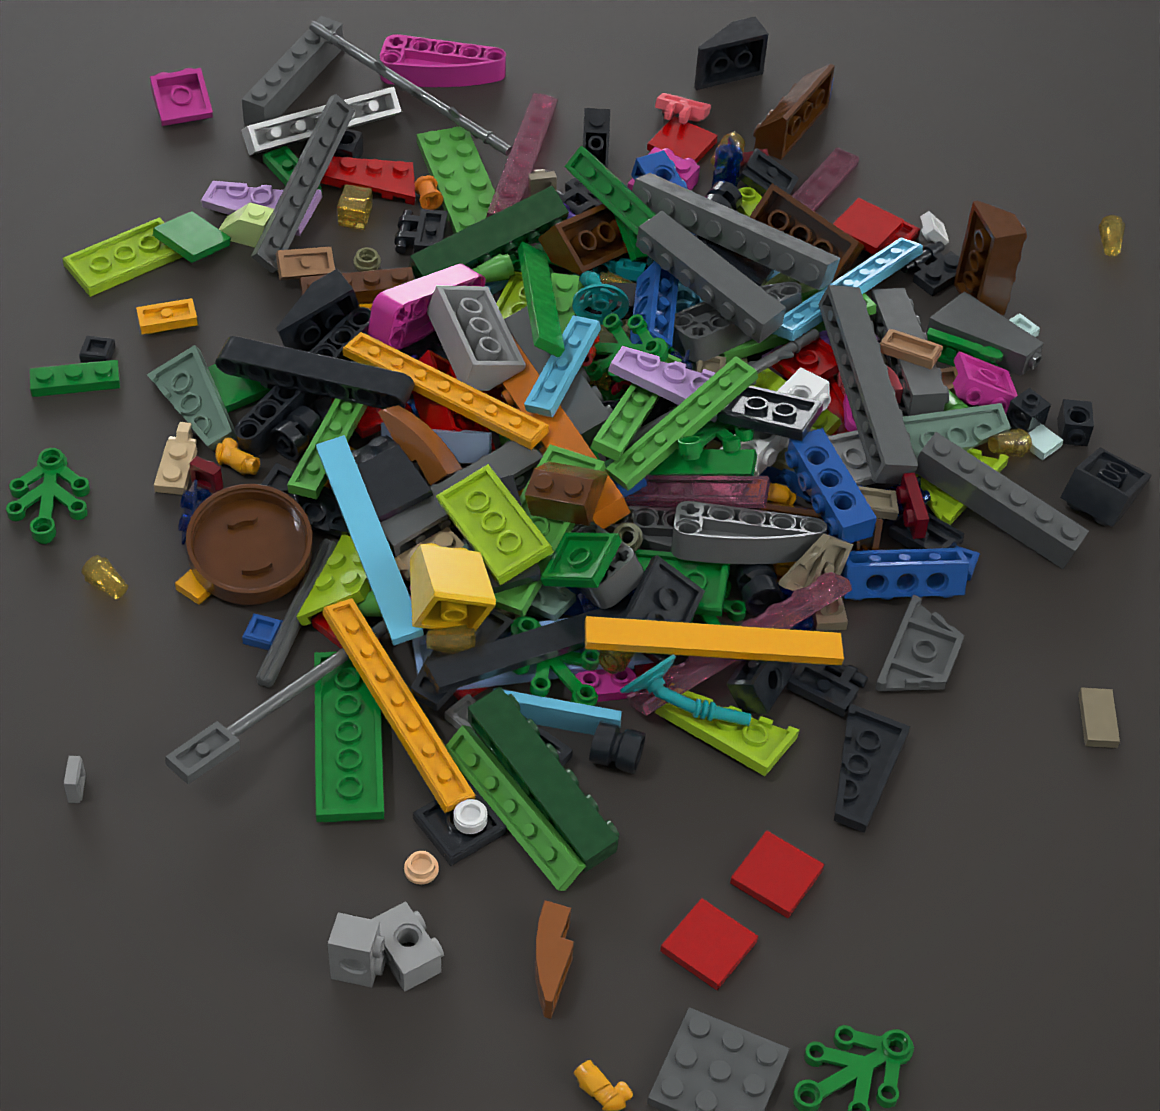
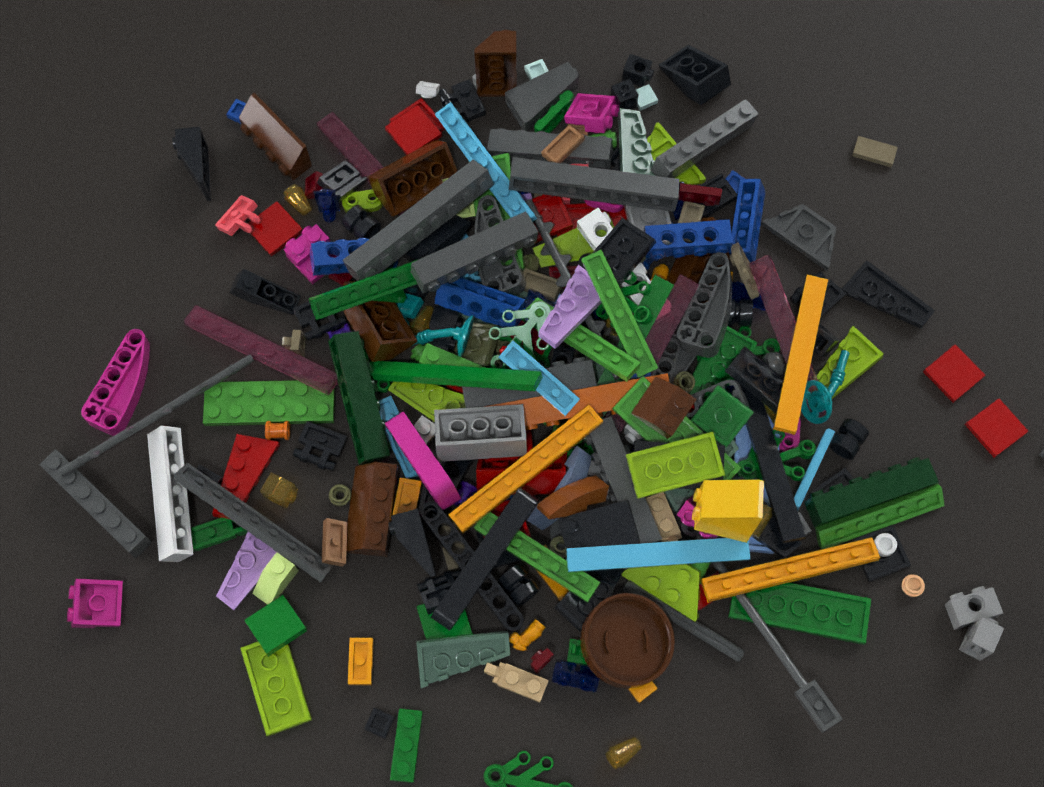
camera: 70 degrees left, 20 degrees up
(261, 631) = (695, 648): blue tile -> none
(496, 268) = (388, 402): bright green cone -> none
(552, 954) = (995, 521): dark orange slope -> none
(1011, 443) = (648, 115): clear yellow cone -> none

